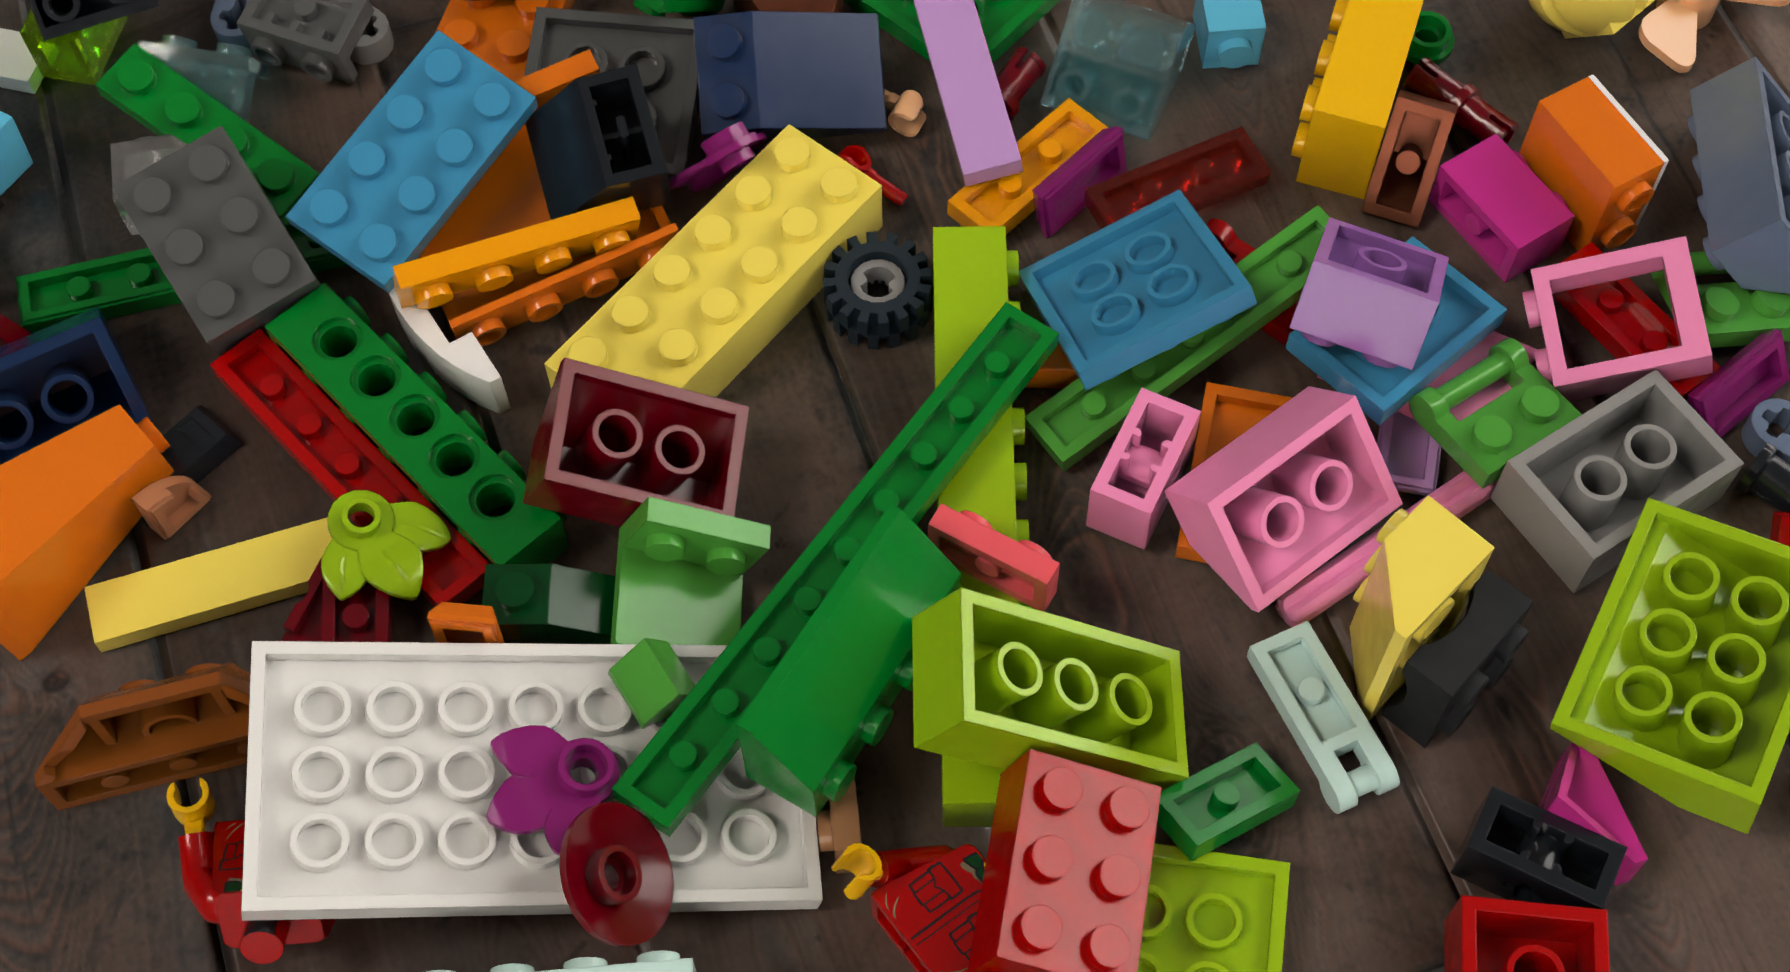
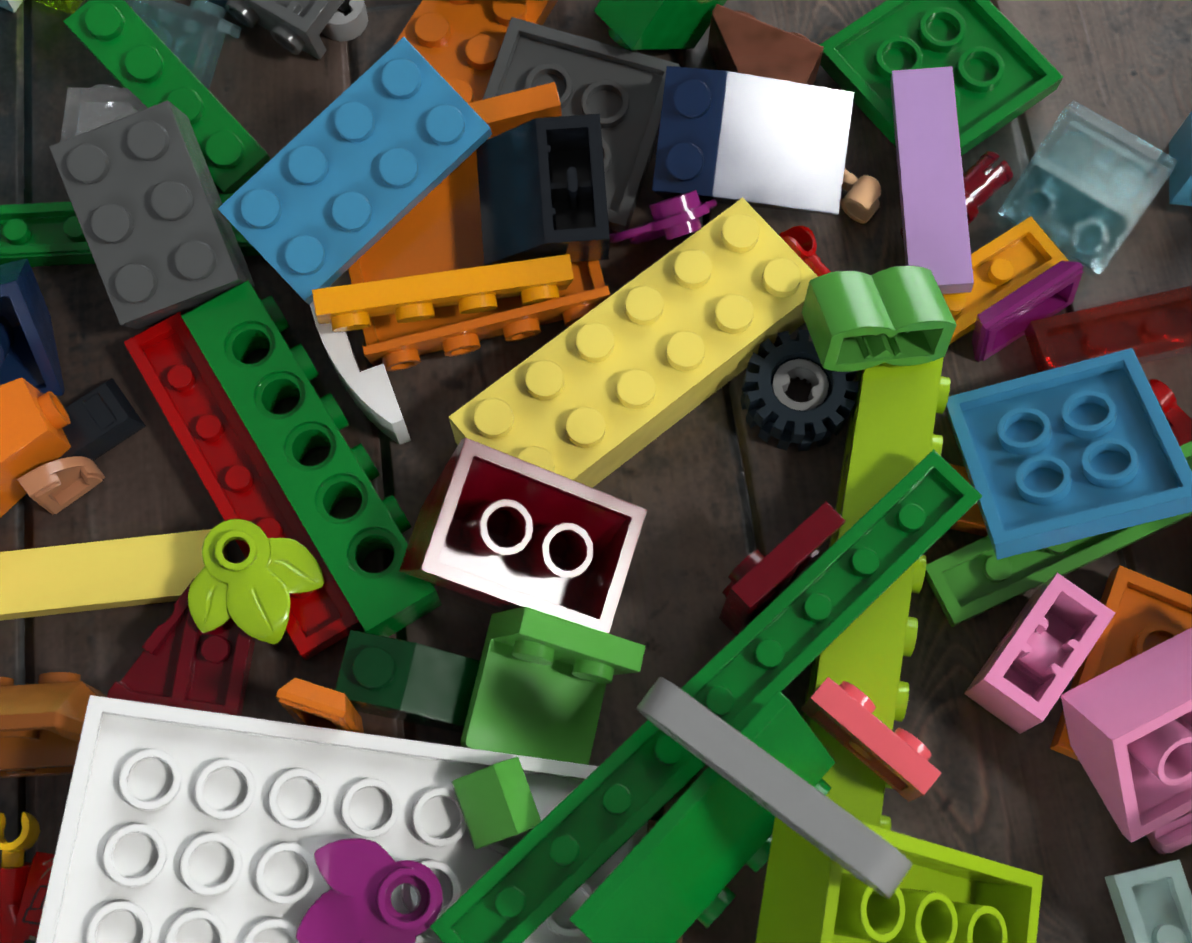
camera: 10 degrees right, 10 degrees up
(868, 437) = (762, 579): none -> dark red wing
(895, 567) = (775, 787): none -> light grey beam
(934, 202) = (877, 318): none -> bright green brick

